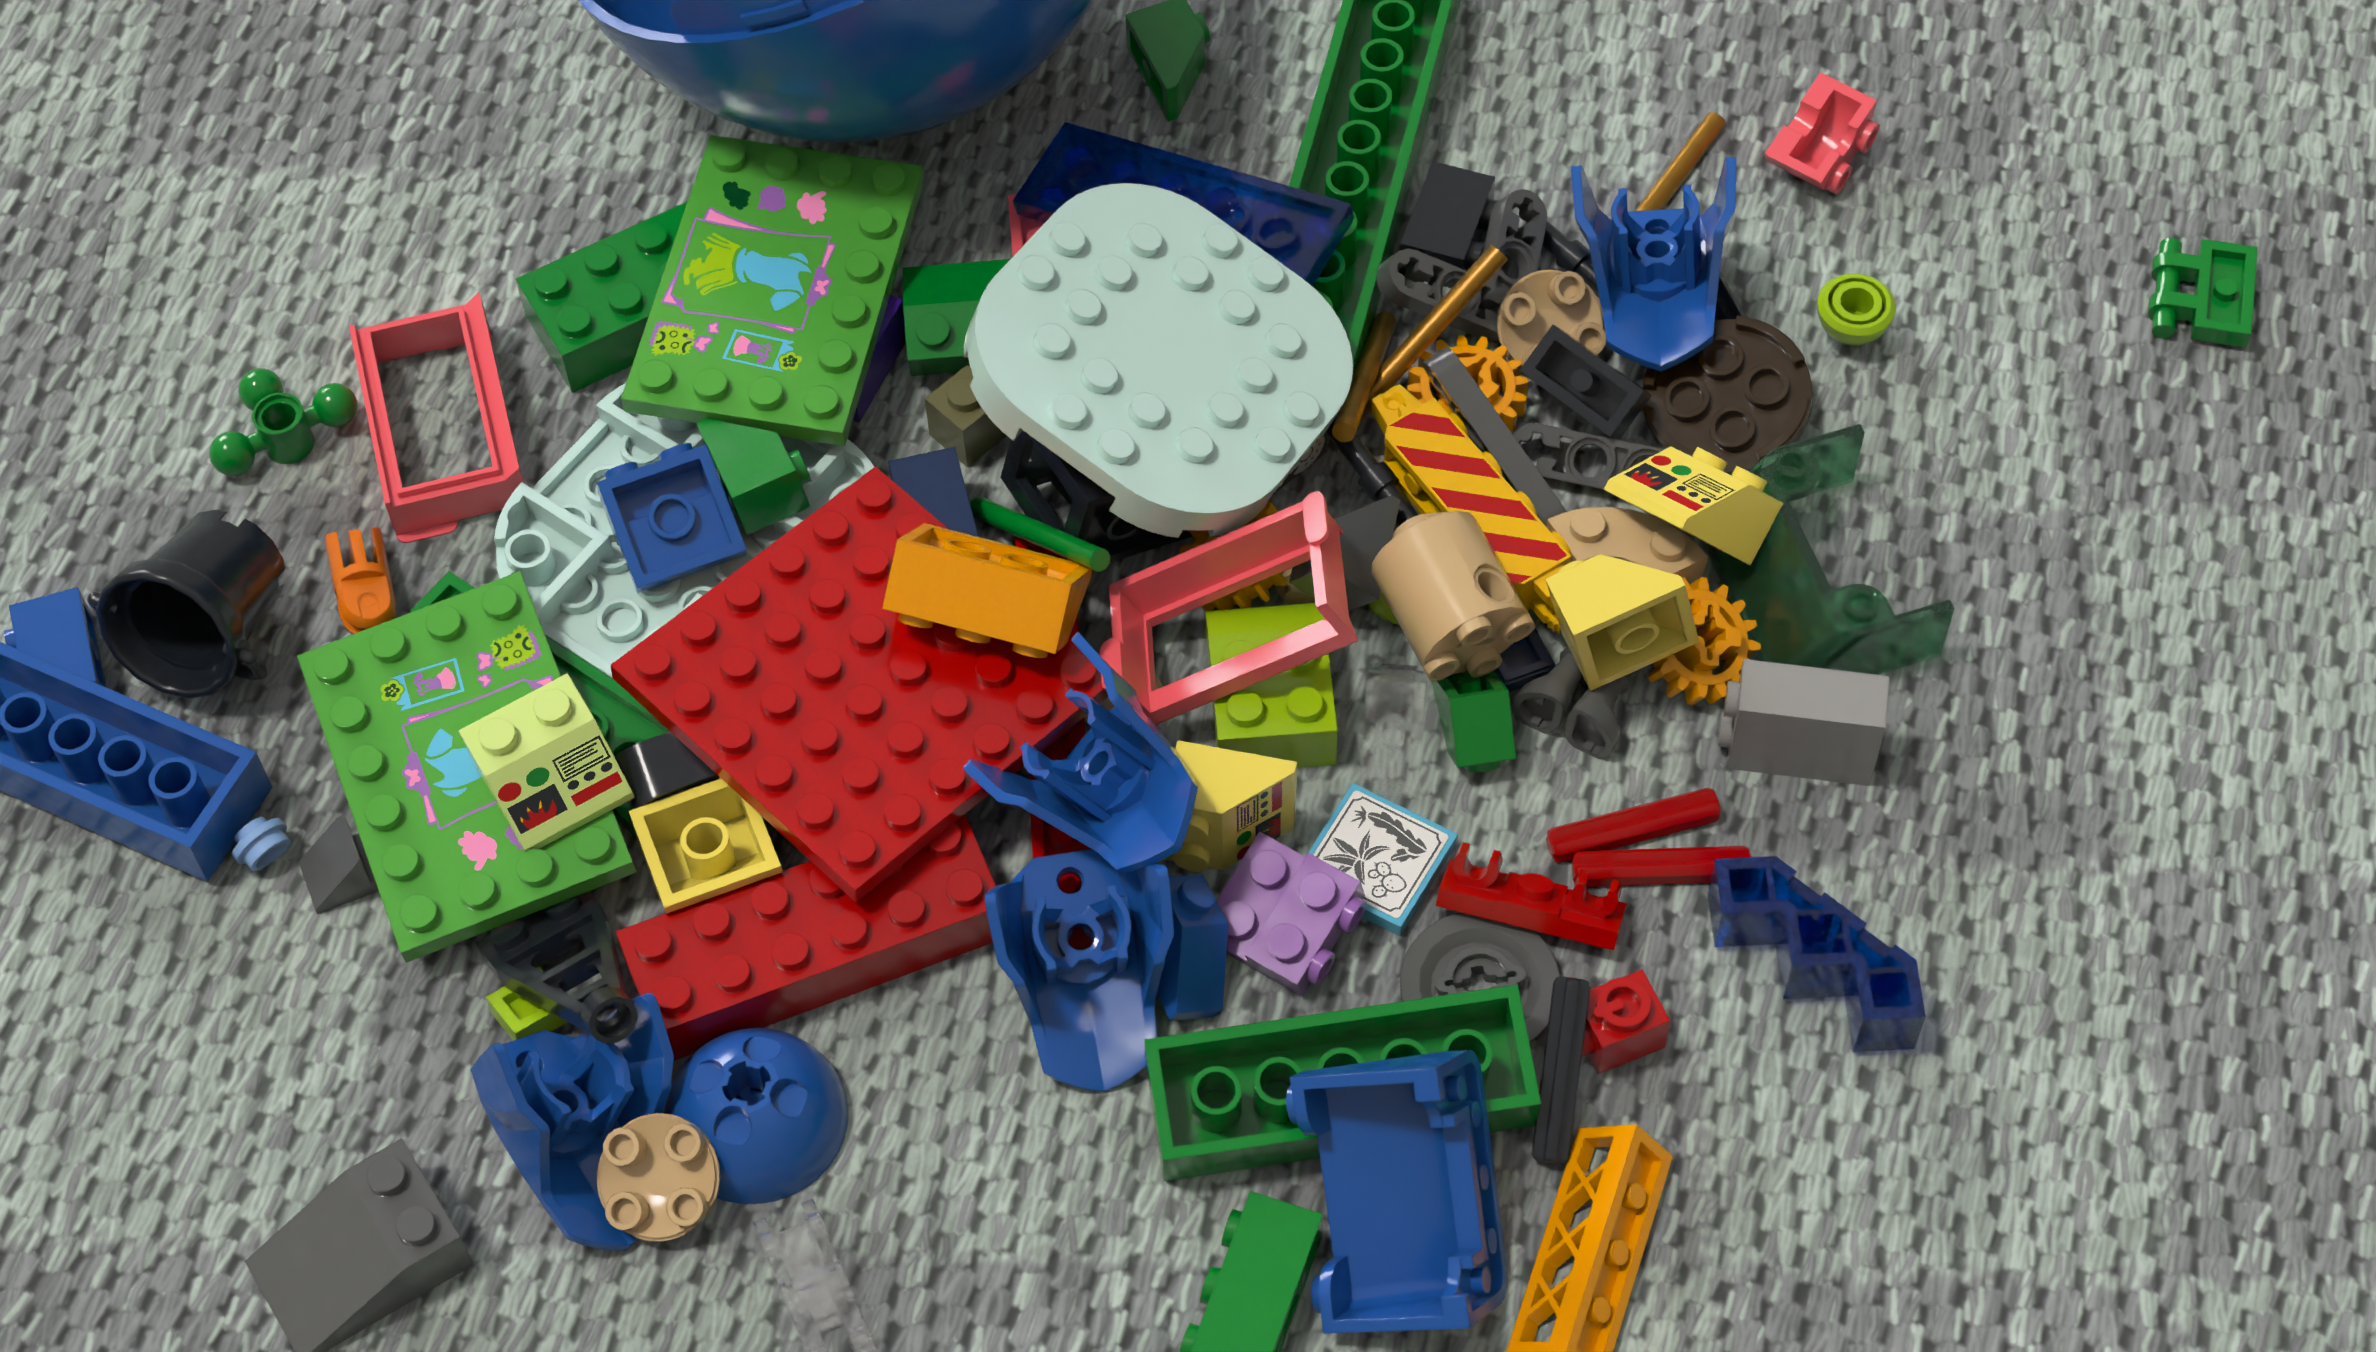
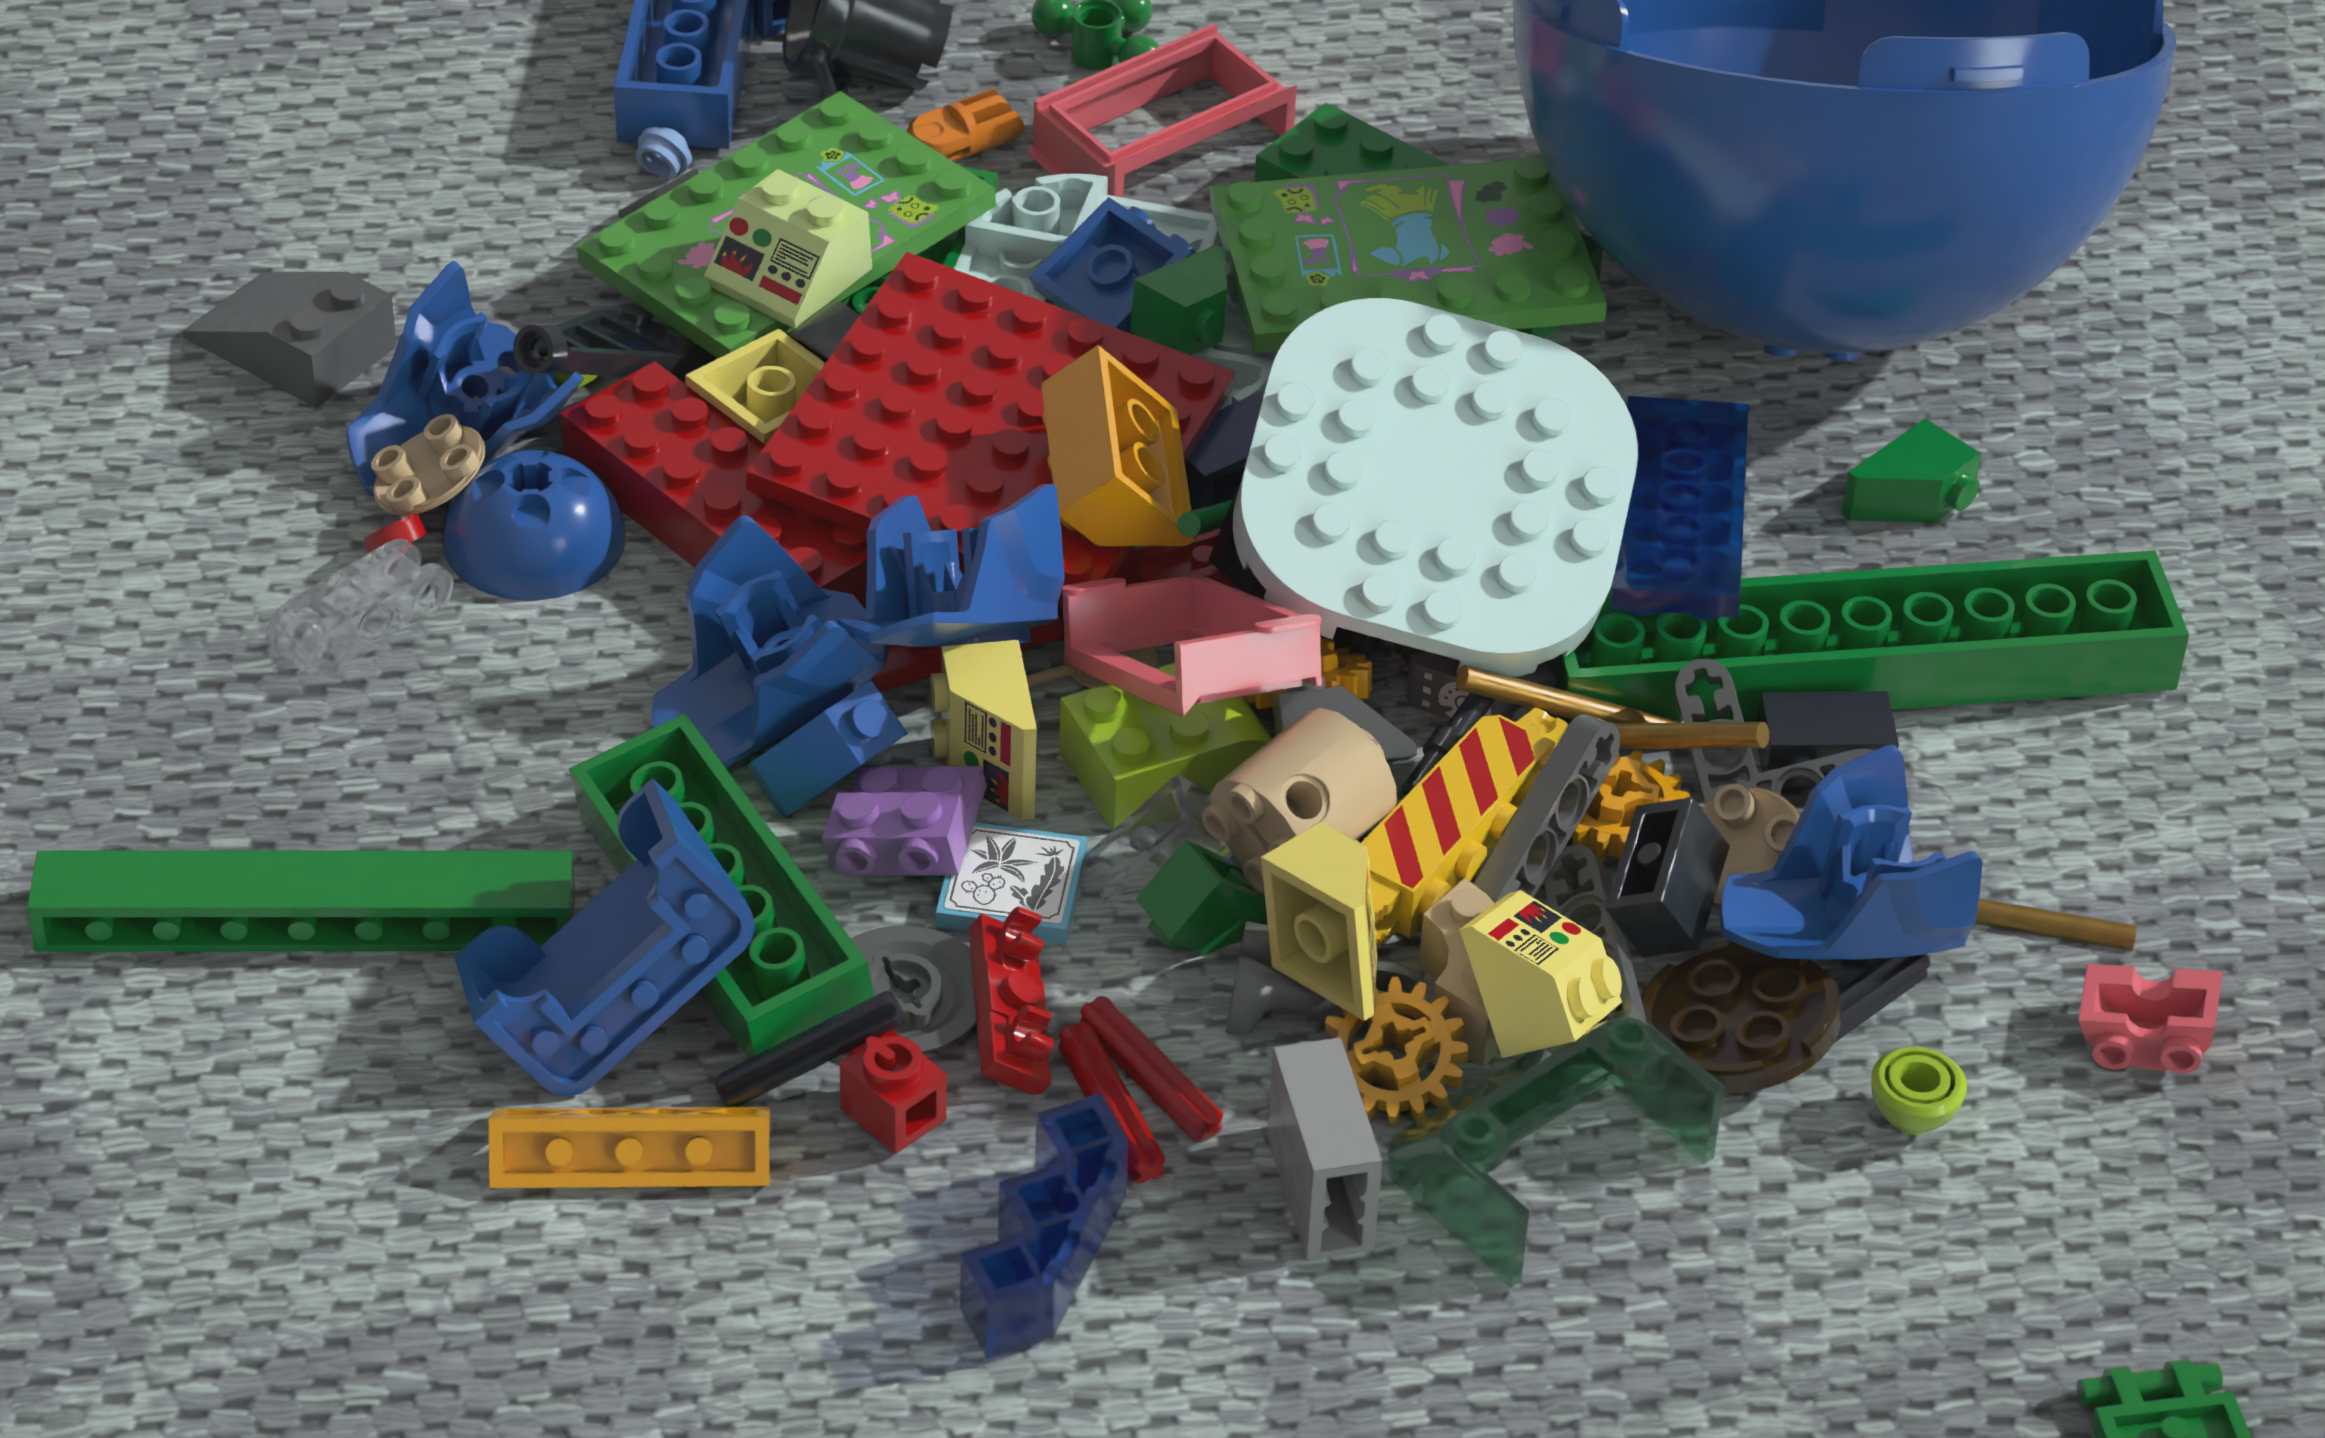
camera: 65 degrees right, 15 degrees down
(725, 1238) = (406, 528): none -> red tile

